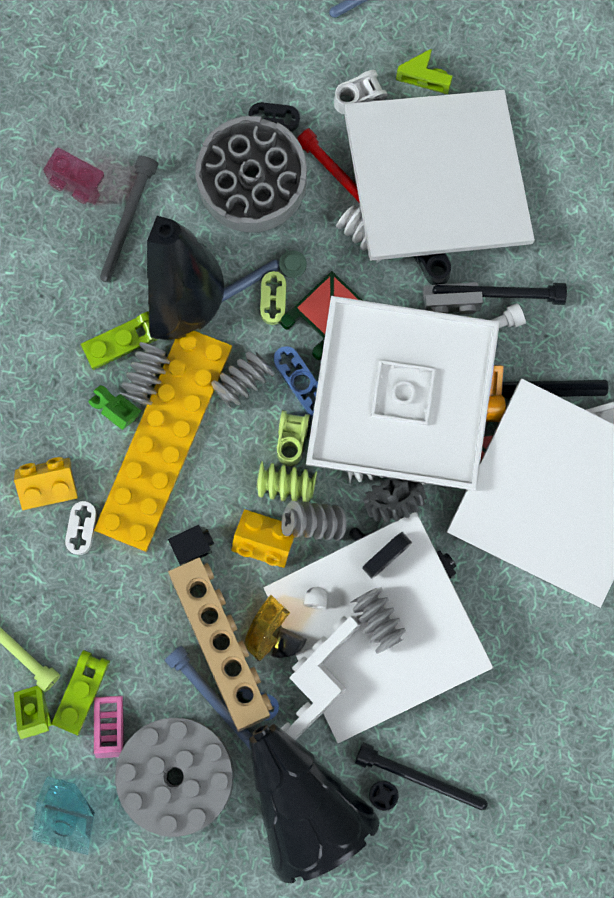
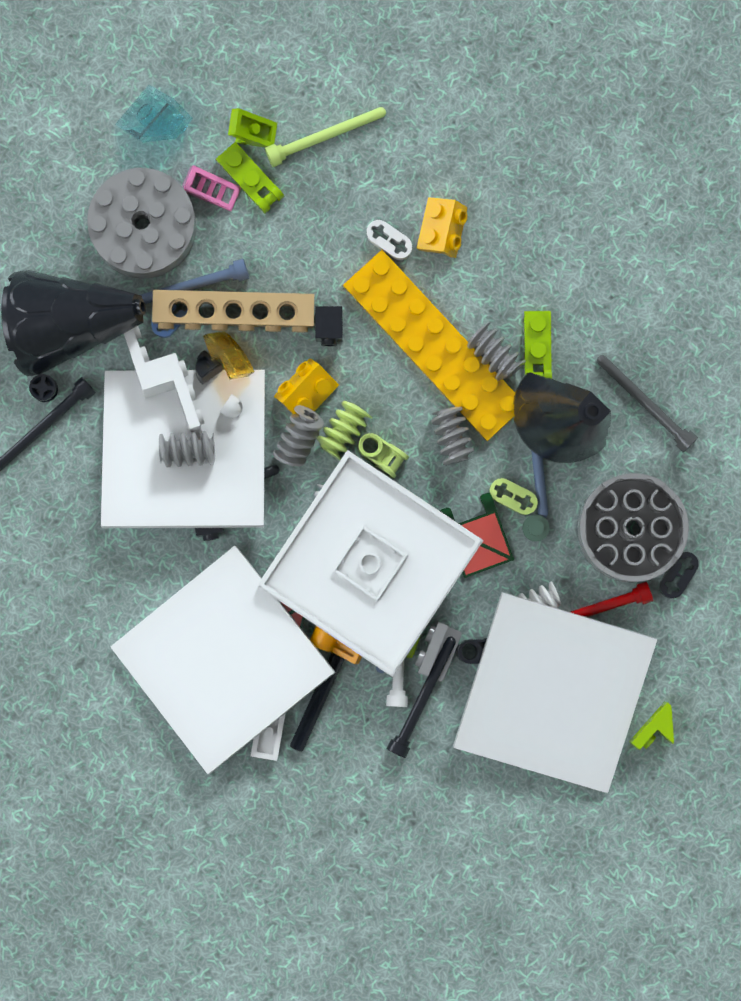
camera: 115 degrees right, 5 degrees up
(74, 175) = (706, 372): clear pink bracket -> none
(116, 409) = (478, 315): bright green plate -> none
(284, 369) = (432, 476): medium blue beam -> none
(361, 89) = (665, 663): white piece -> none
(387, 555) = (237, 482): black beam -> none
(394, 499) = (282, 512): dark grey gear -> none

